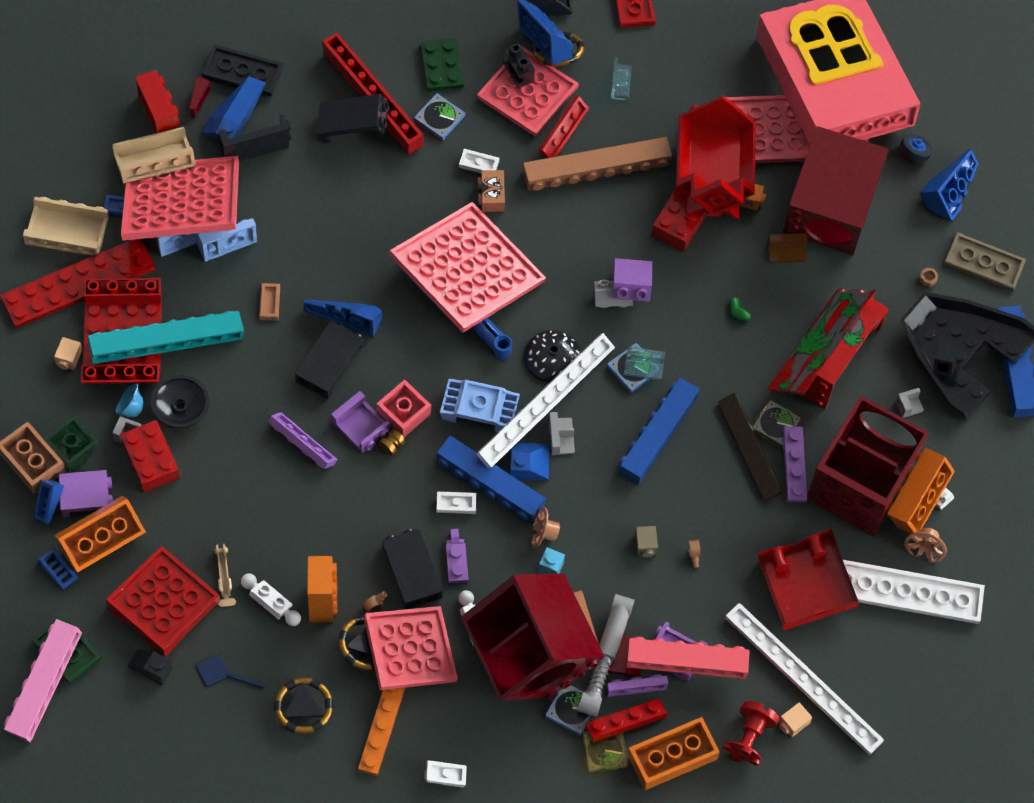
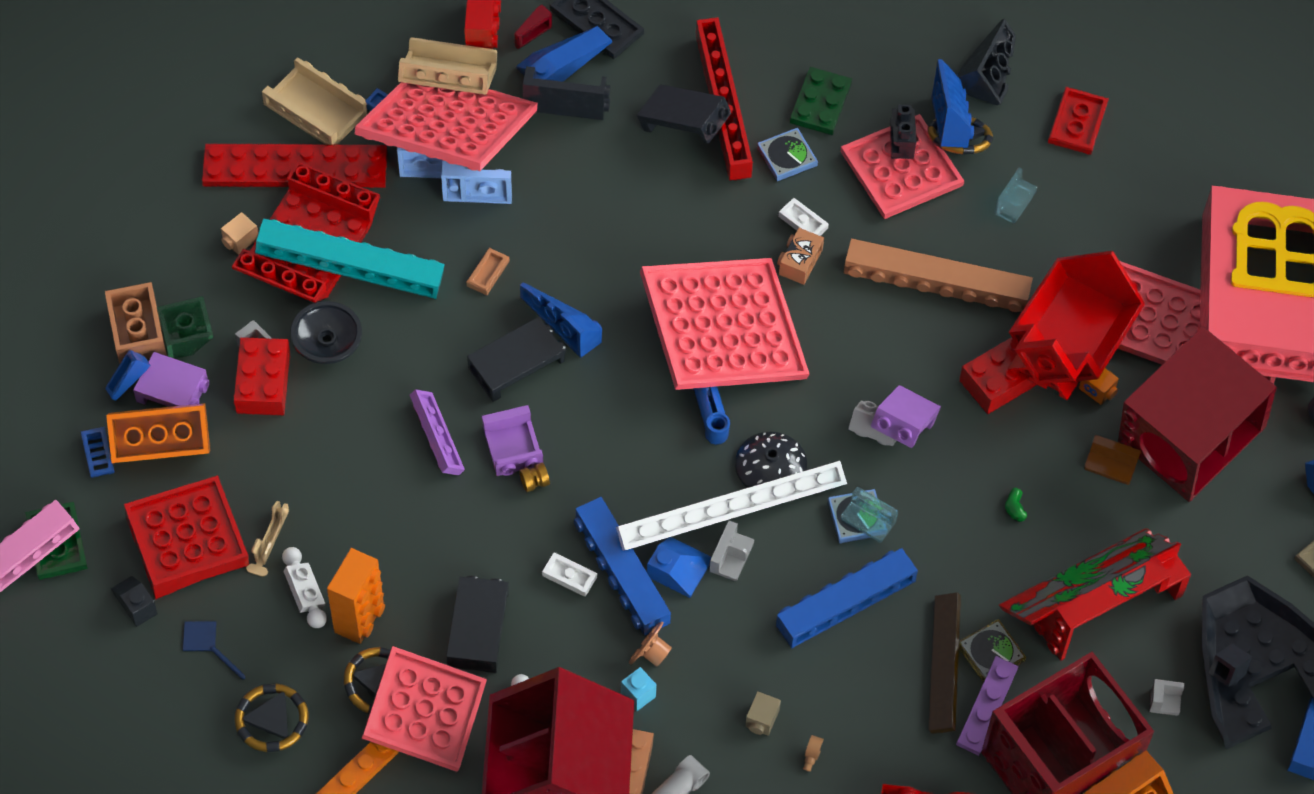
camera: 30 degrees right, 5 degrees down
(130, 403) = (275, 313): dark azure hat -> none
(374, 601) = (416, 640): medium nougat piece -> none
(404, 408) = (566, 446): coral brick -> none
(456, 558) = (535, 636): medium lavender hinge -> none
(478, 403) = (654, 475): light blue plate -> none
(564, 128) = (921, 222): red plate -> none
(928, 277) = (1266, 564): medium nougat tile -> none

